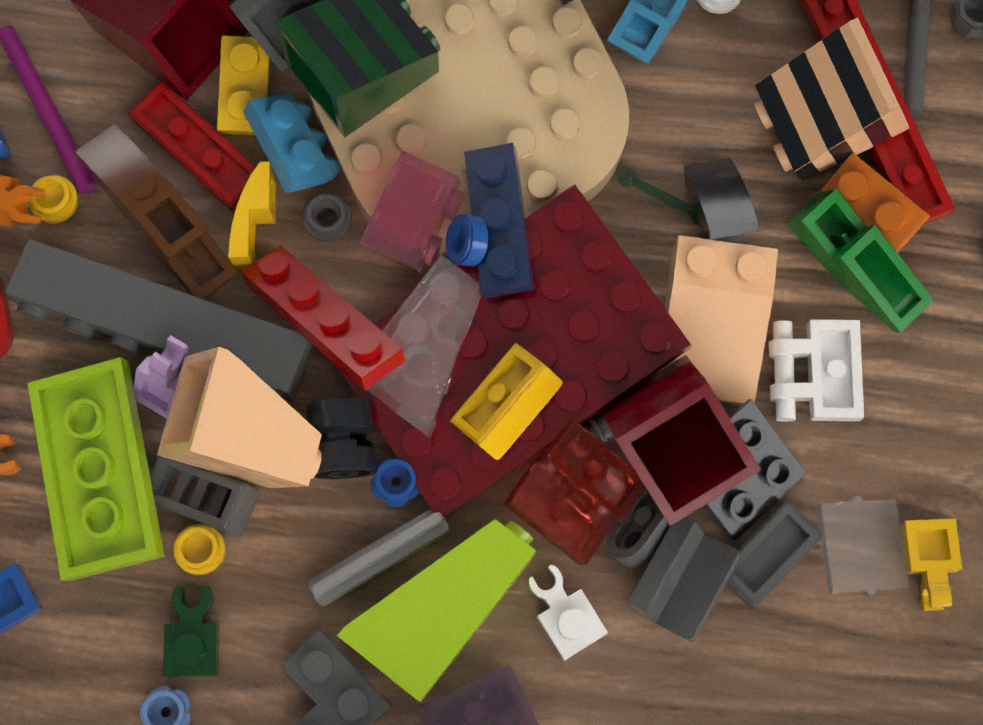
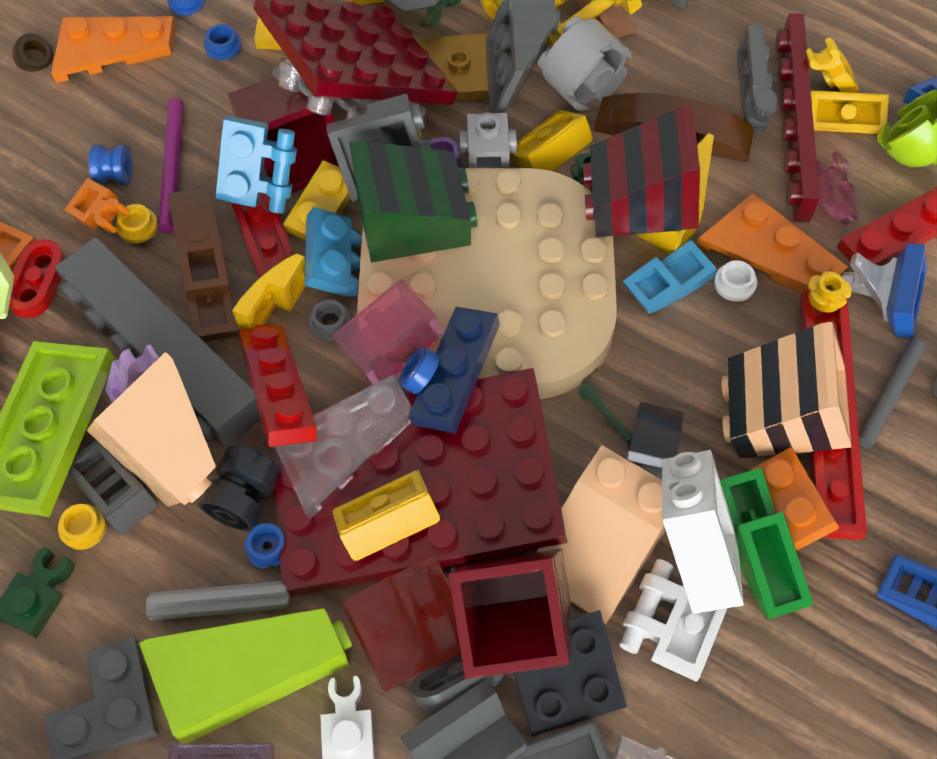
camera: 30 degrees right, 15 degrees down
(145, 83) = (242, 164): none -> plate
(818, 284) = (701, 531): none -> white window

